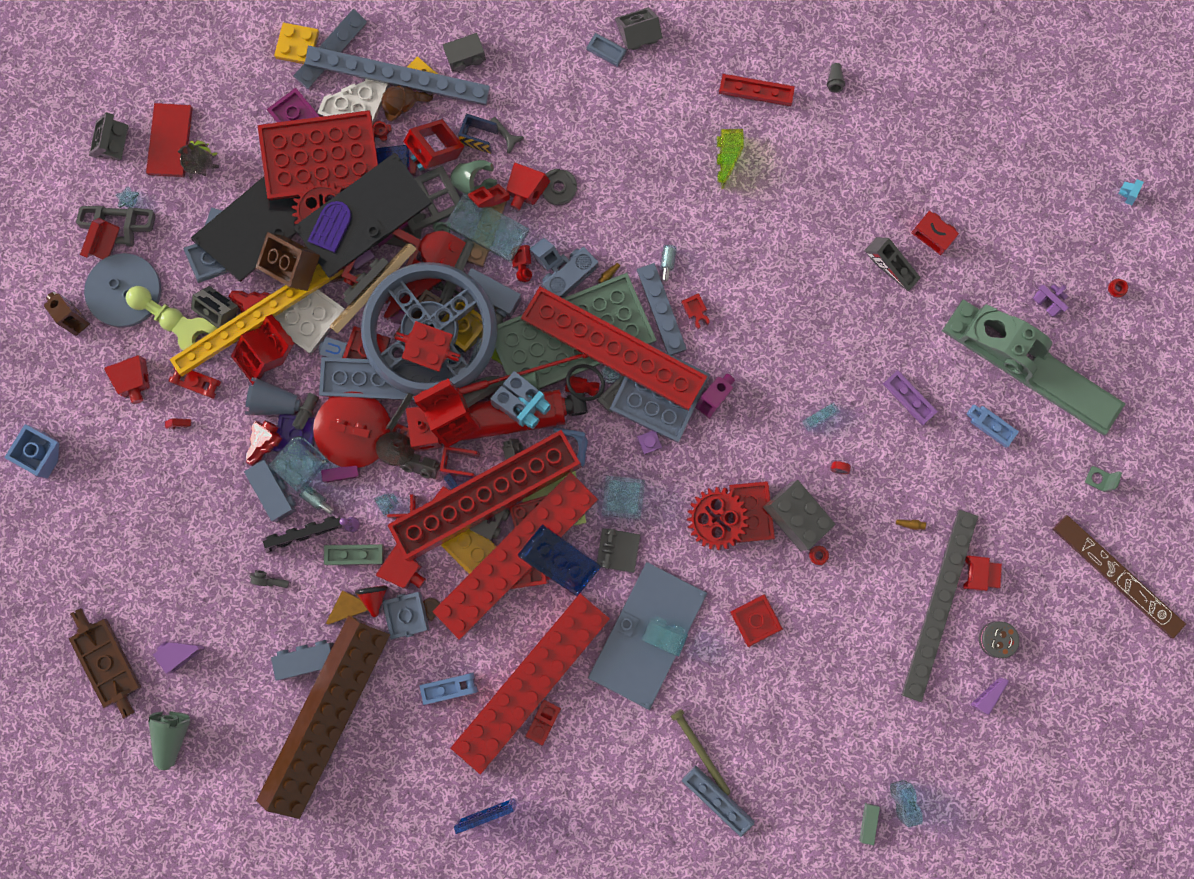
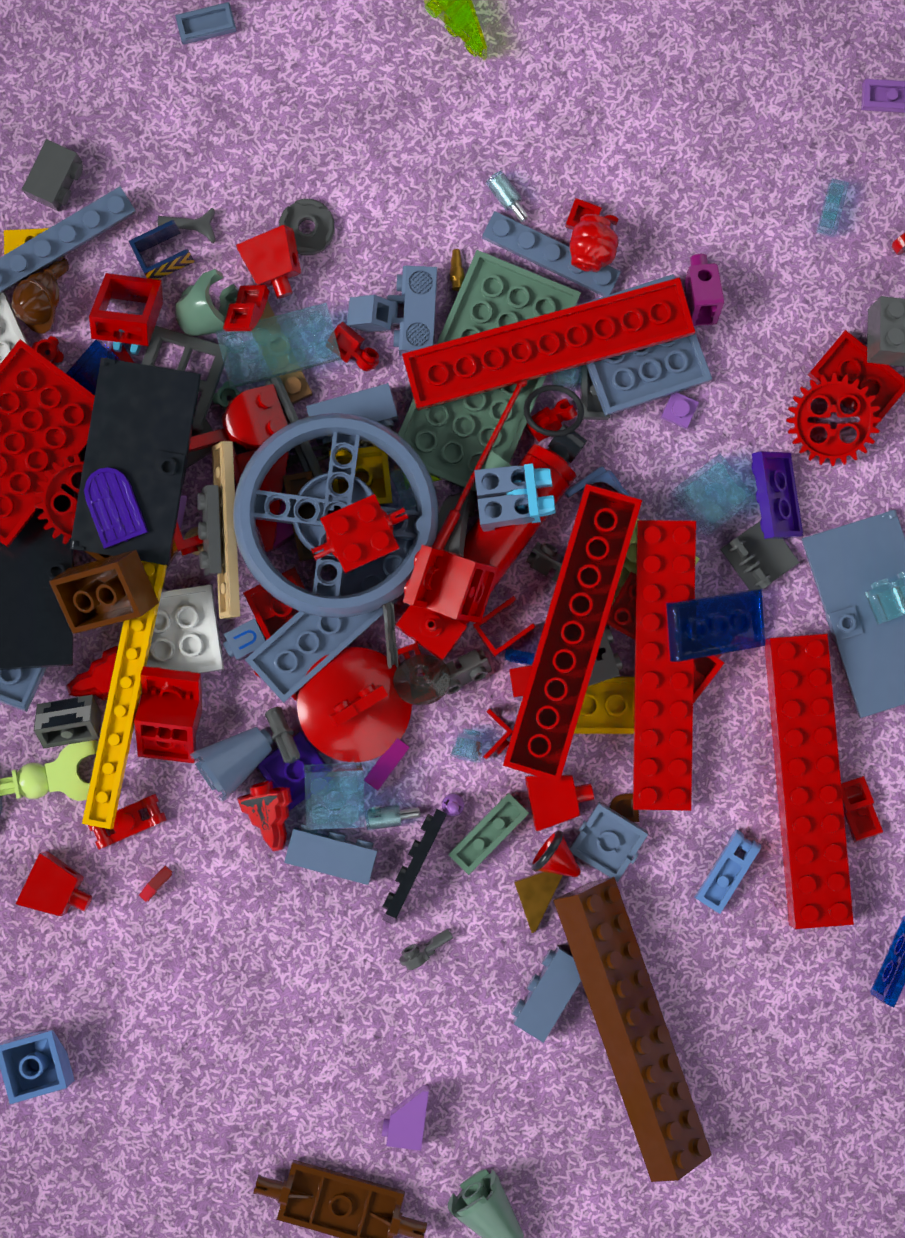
camera: 45 degrees left, 5 degrees up
(653, 528) = (777, 495): none -> dark purple plate
(683, 321) = (593, 243): none -> red hair

